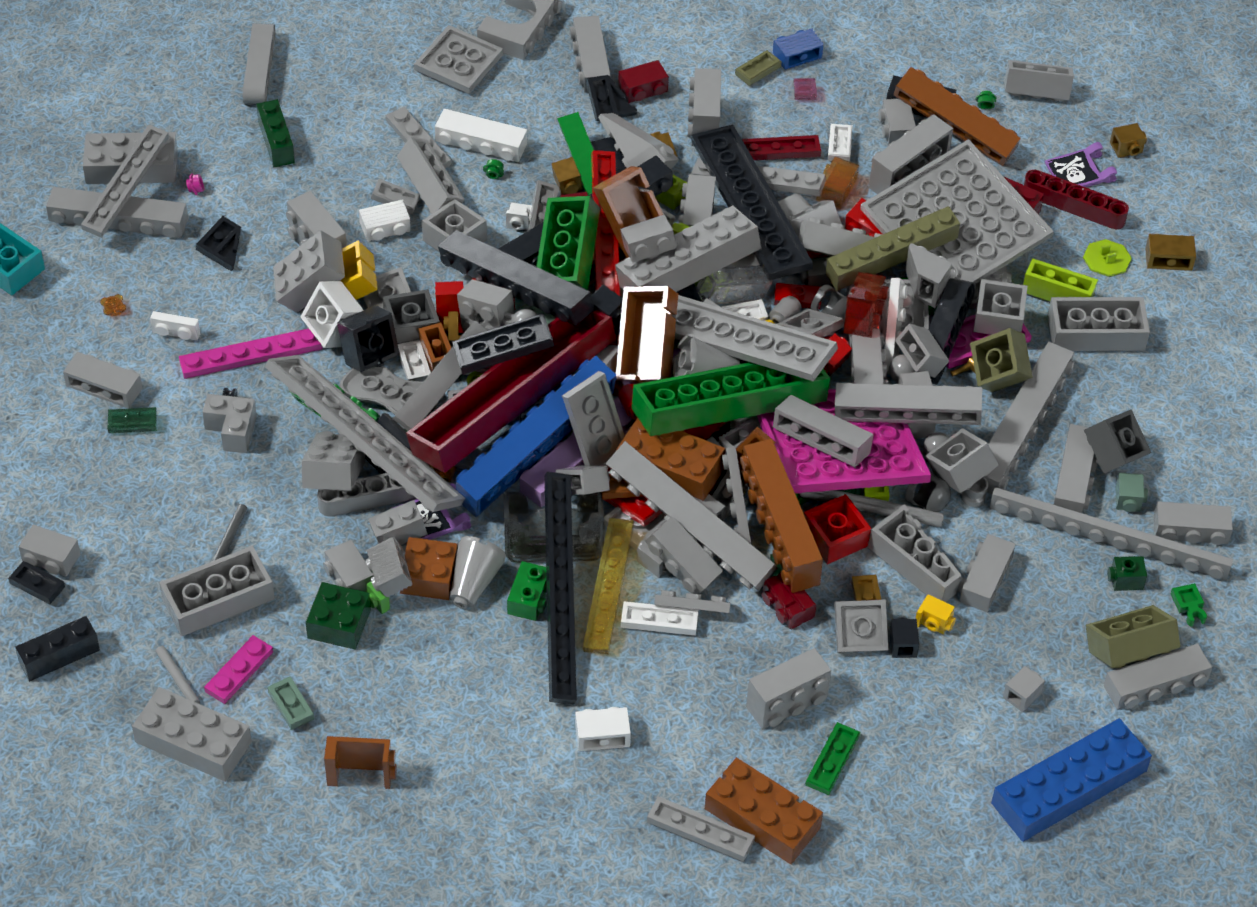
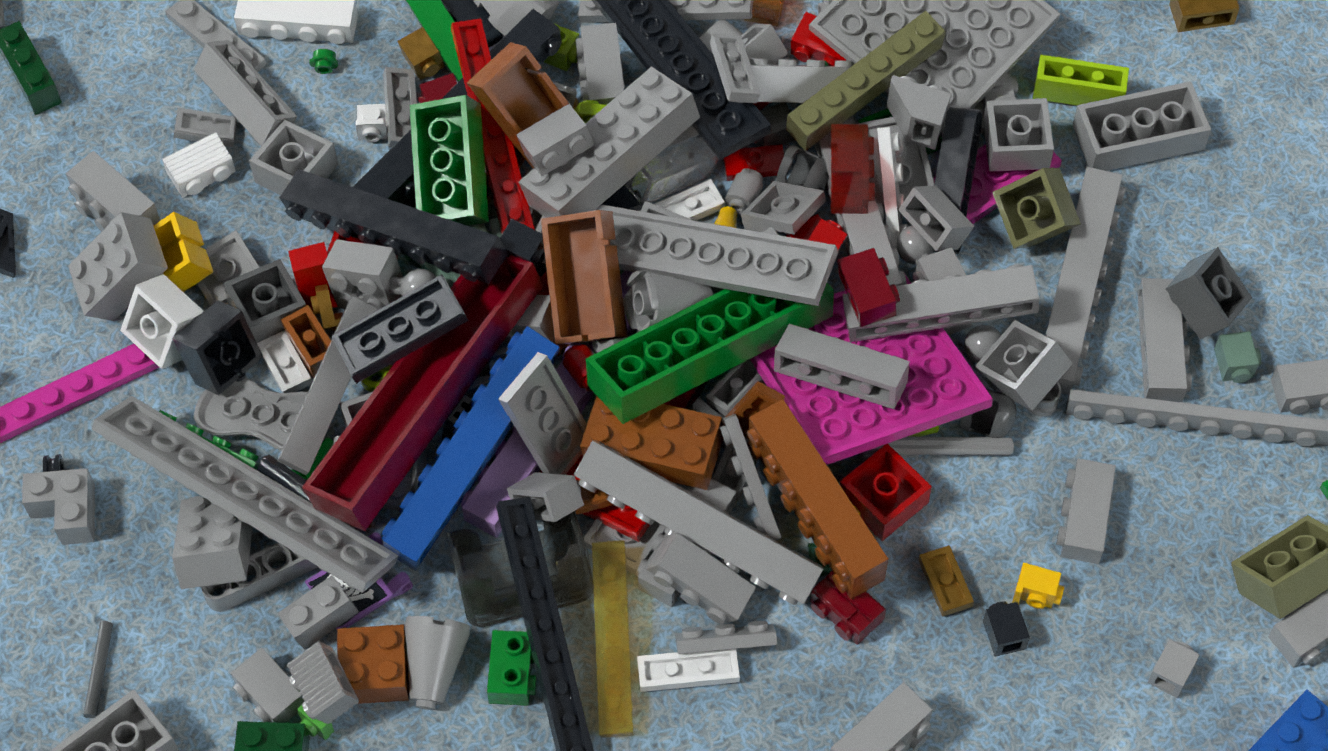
camera: 10 degrees left, 10 degrees up
(795, 220) = (734, 68): none -> light grey plate
(854, 378) = (868, 287): none -> dark red brick
(861, 626) = (949, 625): light grey plate -> none
(914, 555) = (992, 508): light grey wedge -> none
(970, 365) = (994, 216): pearl gold hand -> none
(1107, 258) = (1125, 28): lime piece -> none
(1127, 573) = (1262, 473): dark green brick -> none

